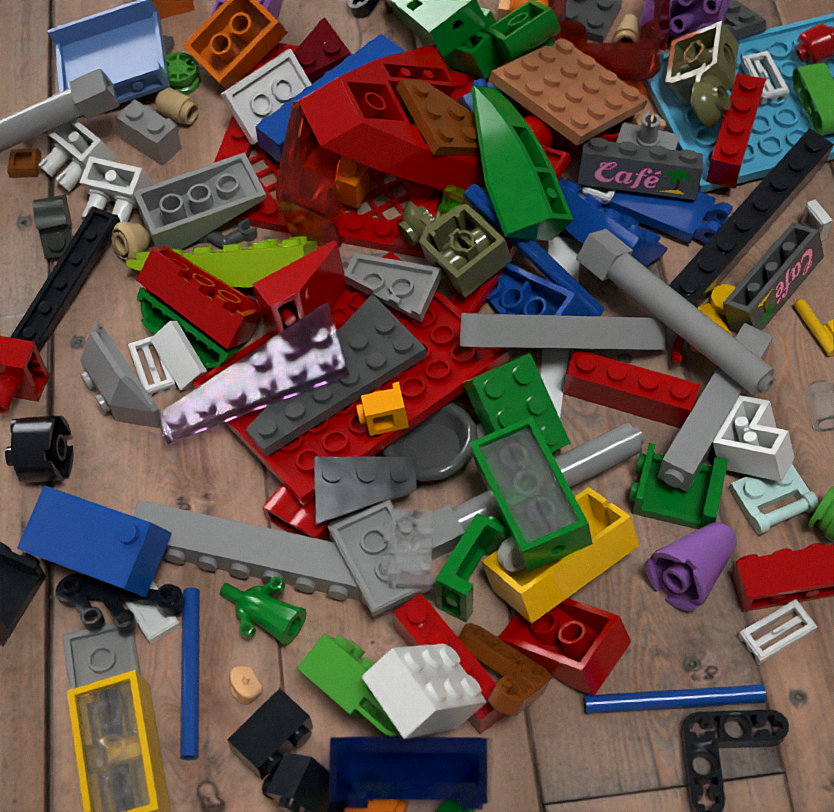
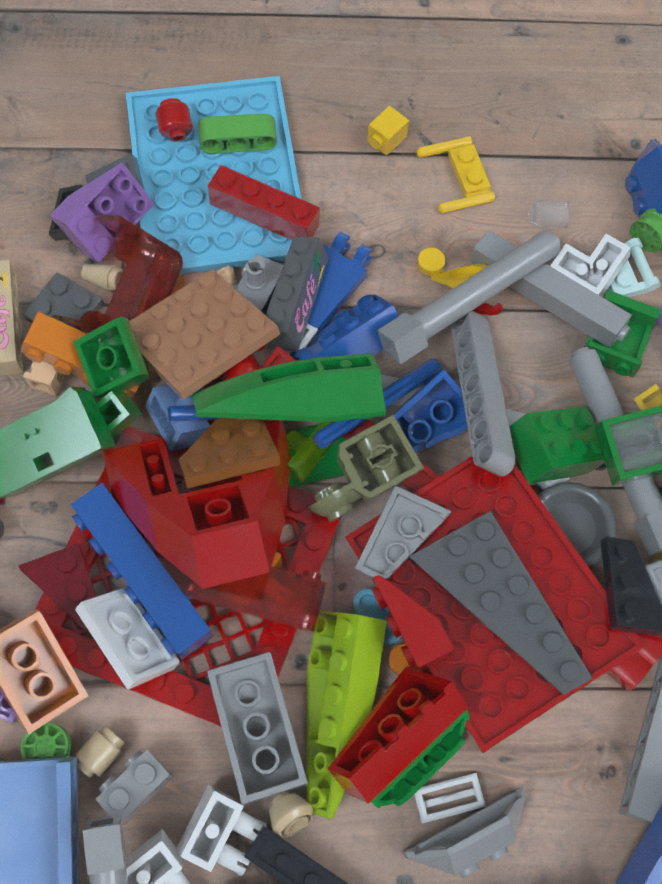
camera: 90 degrees left, 10 degrees up
(178, 355) = (450, 765): white tile -> none
(233, 237) = (298, 706): dark grey arm -> none
(284, 366) = (499, 659): clear purple wing -> none
(383, 411) = (564, 556): light orange brick -> none
(630, 388) = (527, 347): red brick -> none
(703, 70) = (197, 212): olive brick -> none
(752, 218) = (366, 221): black brick -> none
(753, 67) = (195, 176): white tile -> none
(774, 278) = (427, 216): dark grey brick -> none
(817, 218) = (362, 173): white tile -> none

